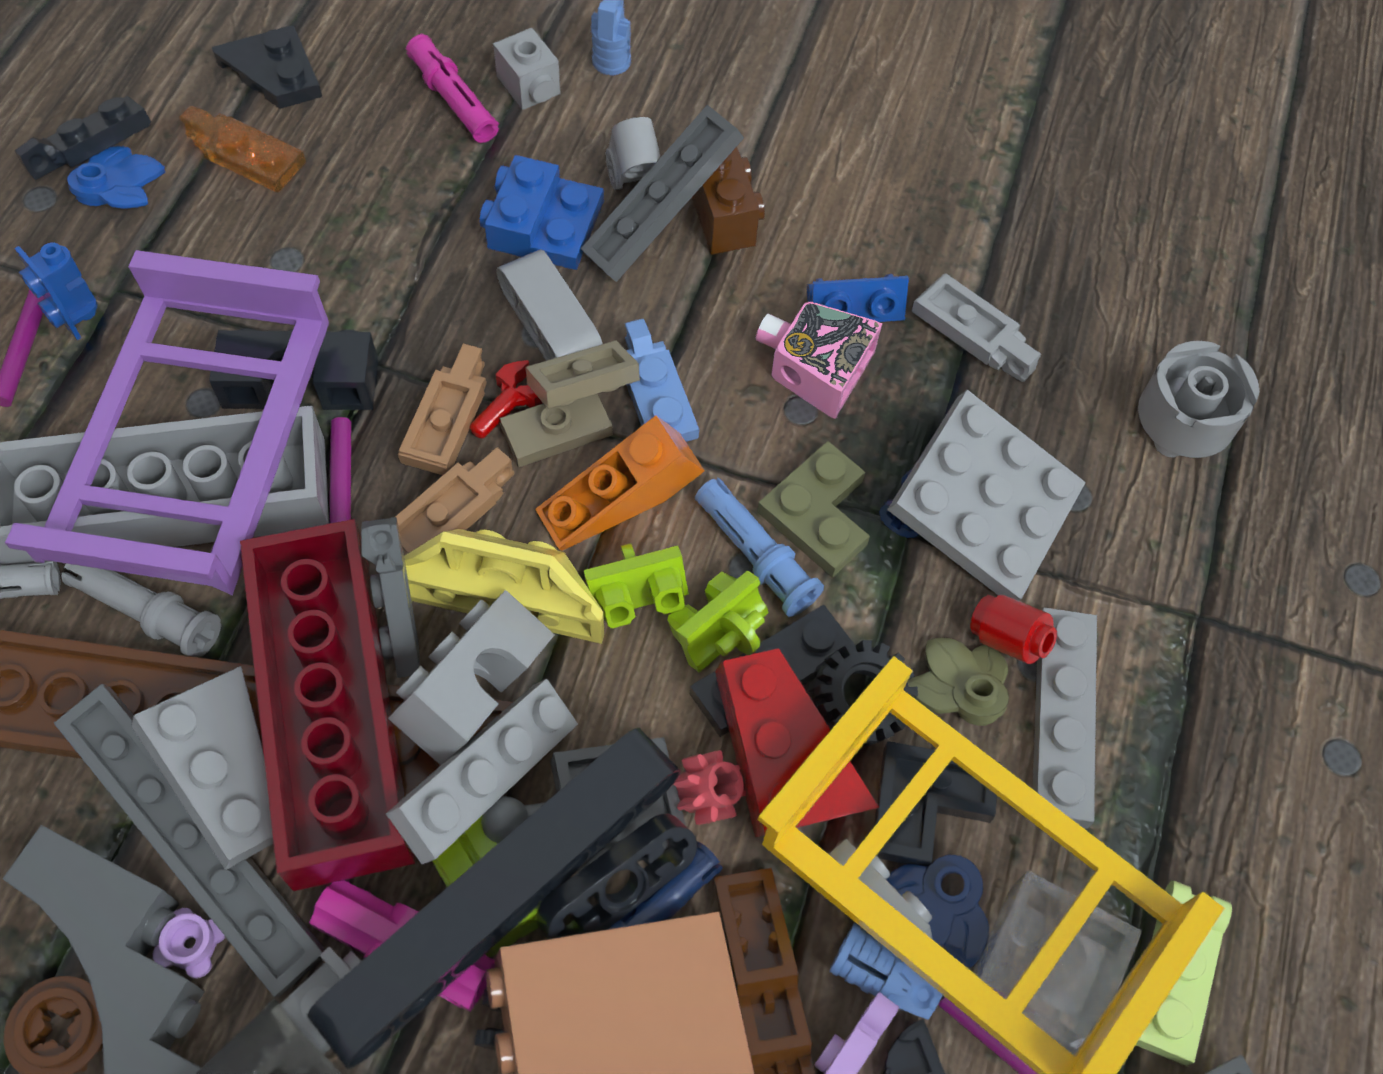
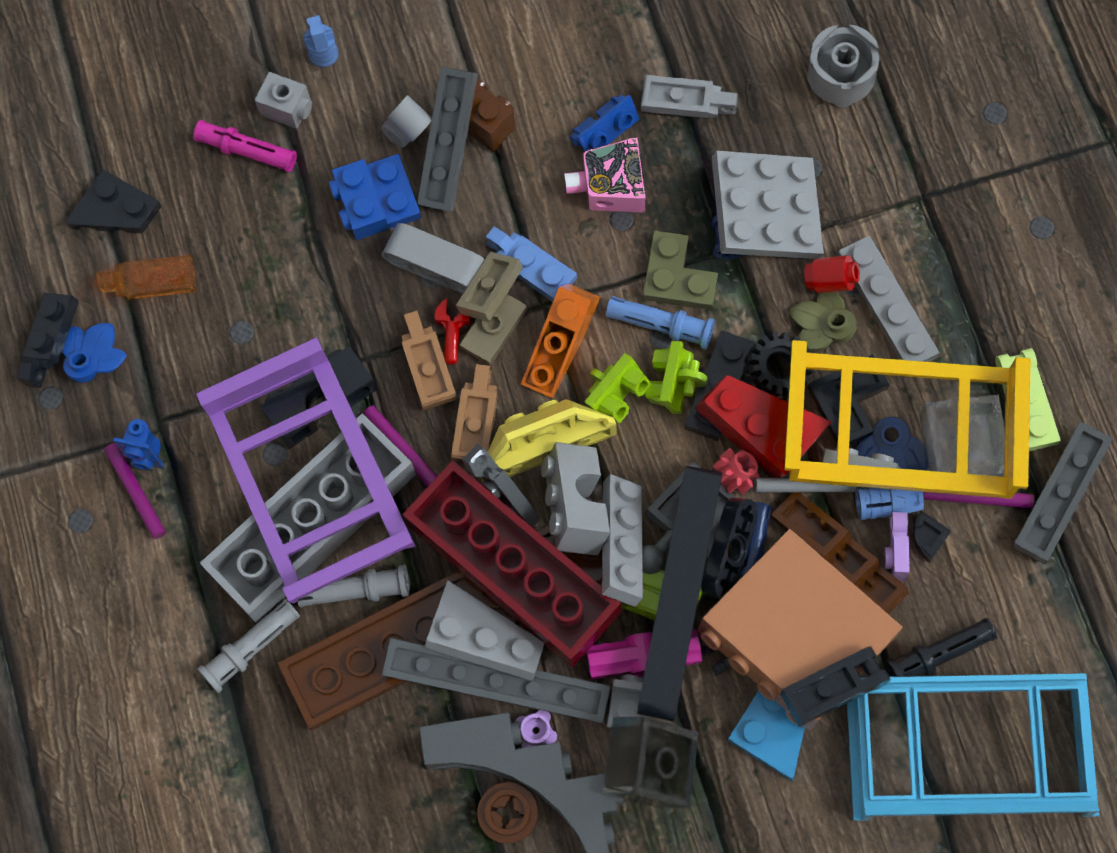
camera: 25 degrees left, 10 degrees up
(751, 845) = (772, 485): none -> light grey bar

